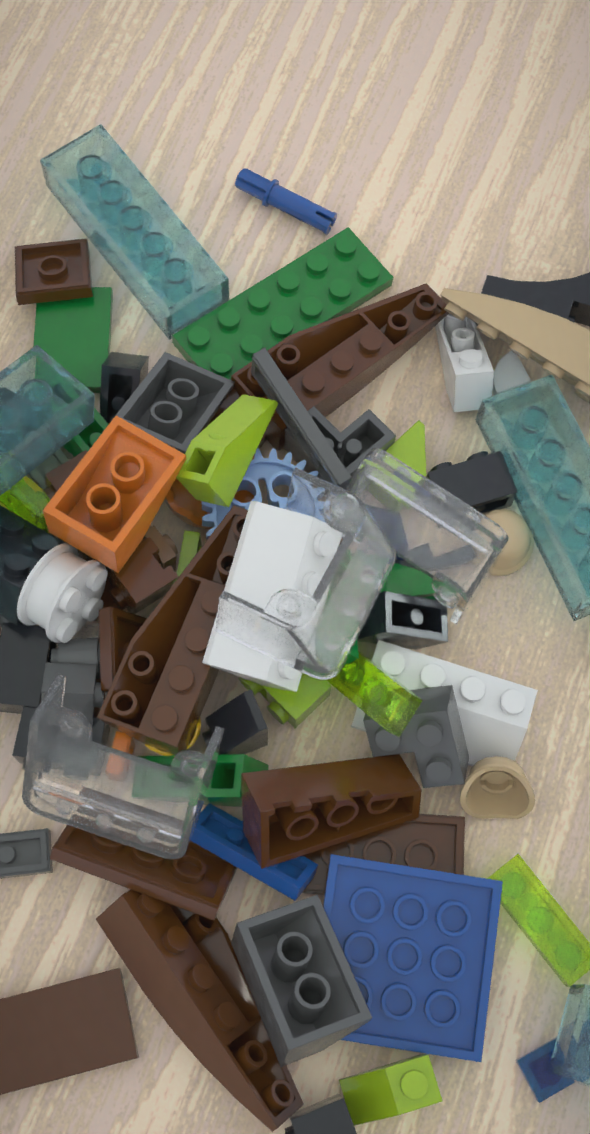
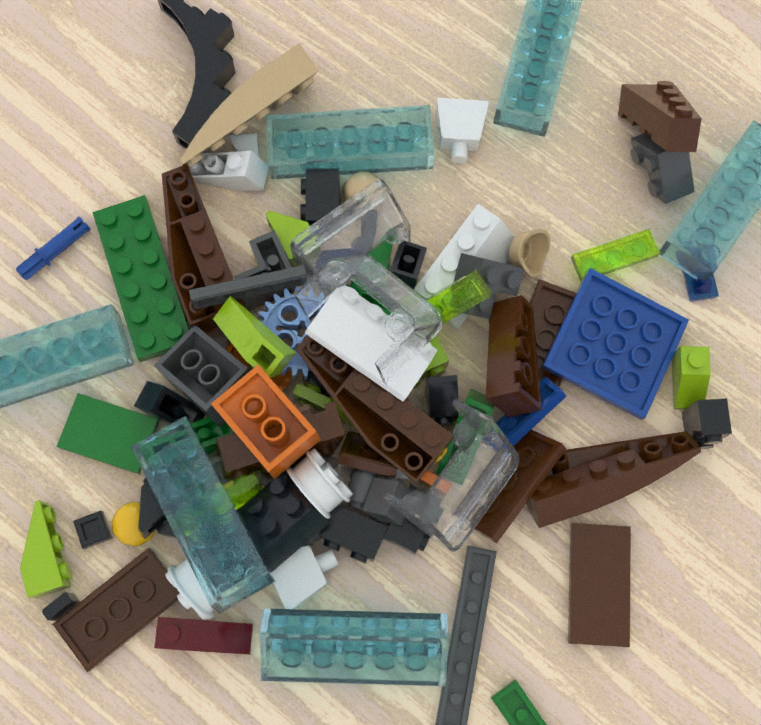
camera: 70 degrees left, 5 degrees up
(53, 271) = (48, 431): reddish brown tile -> none
(299, 979) = (615, 408): dark grey slope -> none

